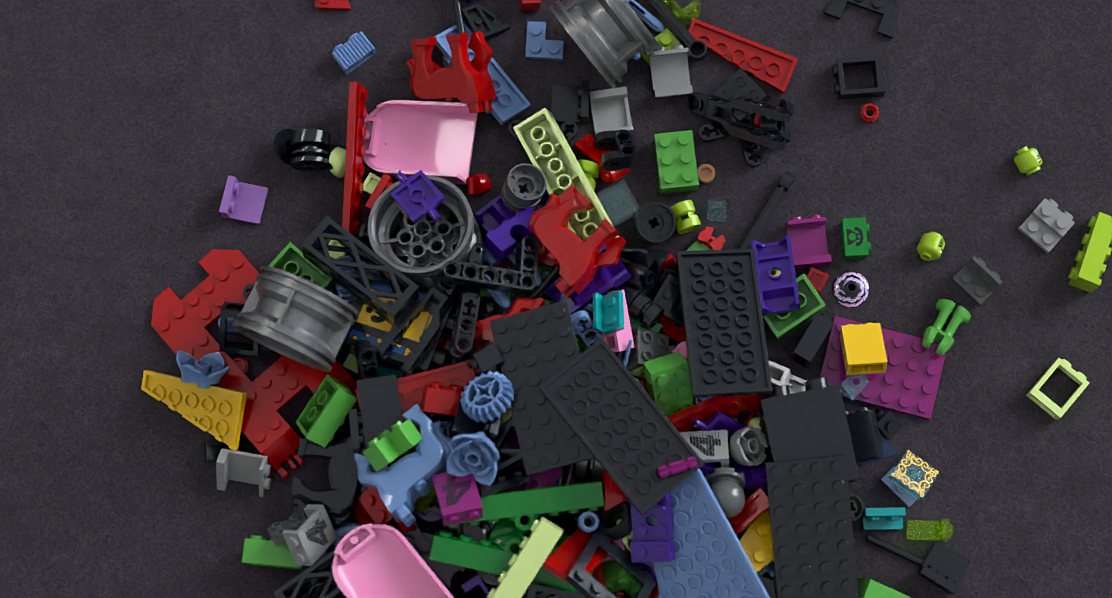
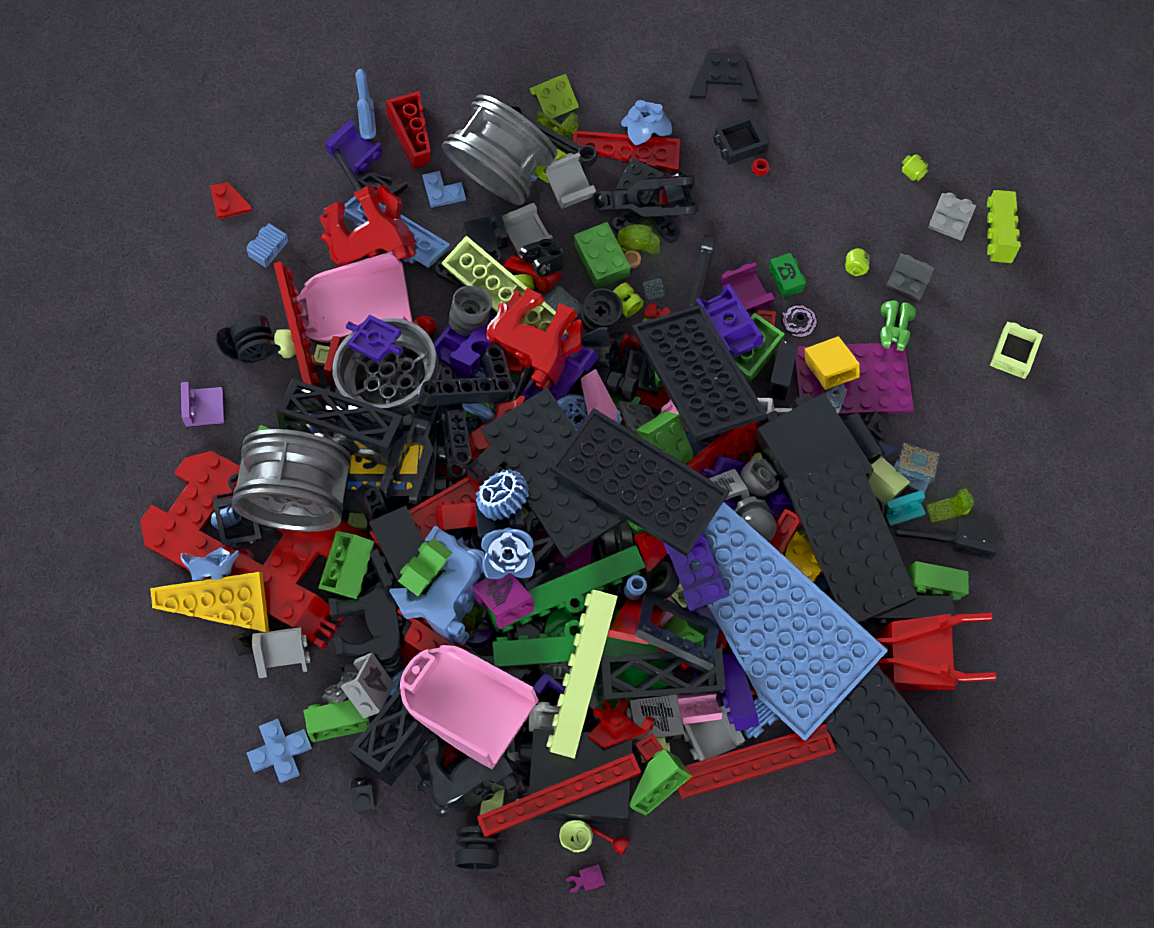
camera: 25 degrees left, 10 degrees down
(215, 563) = (279, 750): none -> medium blue plate
(608, 312) = (589, 391): teal bracket -> none
(677, 467) = (705, 501): magenta axle -> none
(718, 155) = (638, 237): none -> clear neon green brick
(768, 30) = (644, 120): none -> medium blue brick
(873, 484) = (885, 481): none -> yellowish green slope

